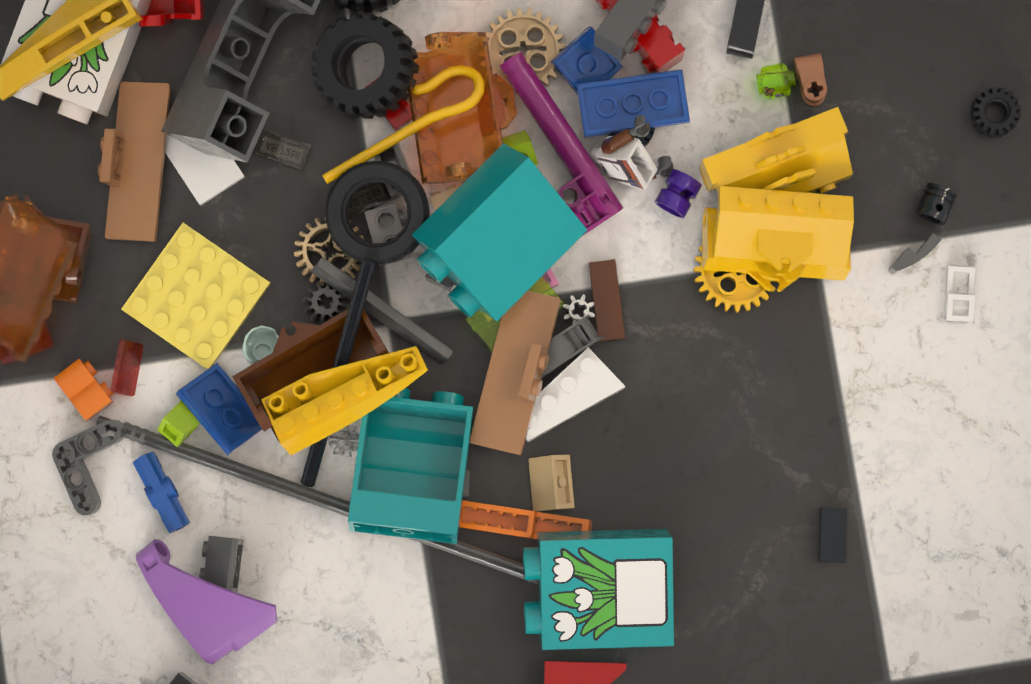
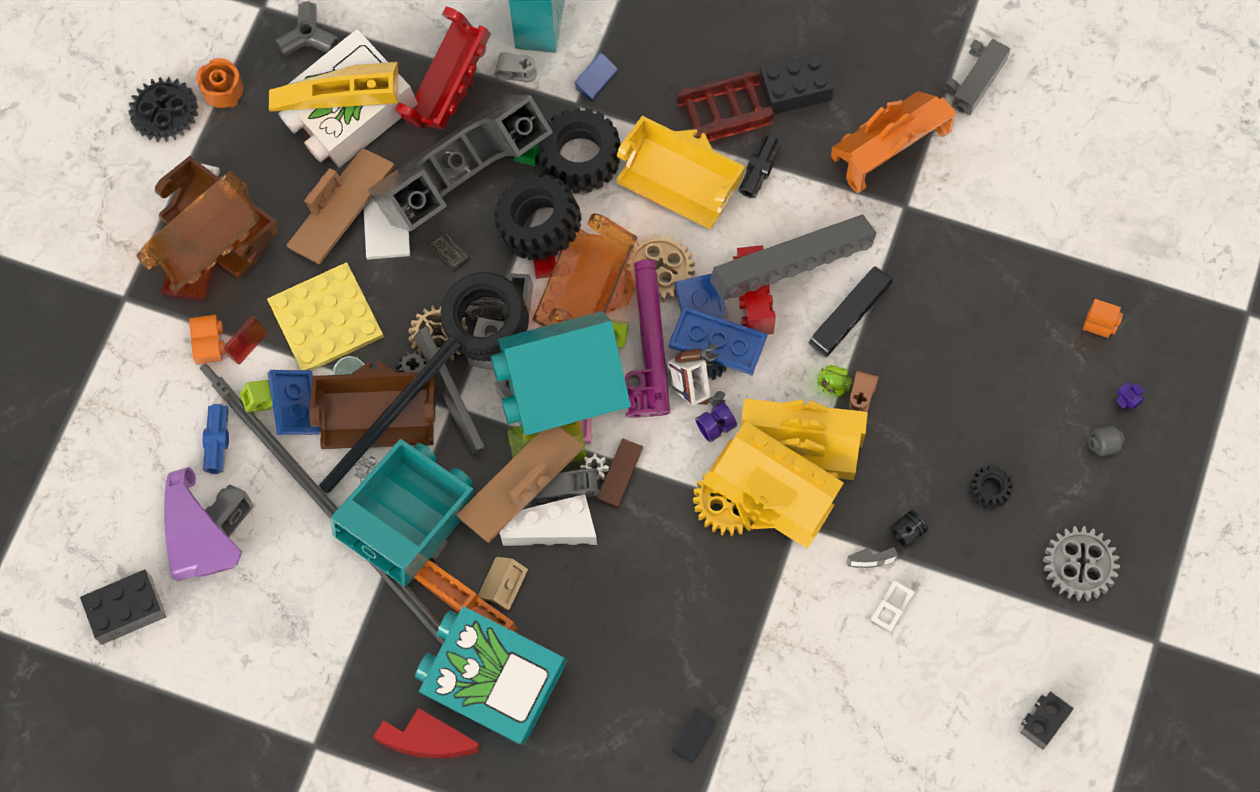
camera: 30 degrees right, 15 degrees down
(77, 456) = (175, 382): dark grey beam -> none
(339, 397) = (378, 429): yellow wedge -> none
(417, 125) = (564, 274): yellow piece -> none

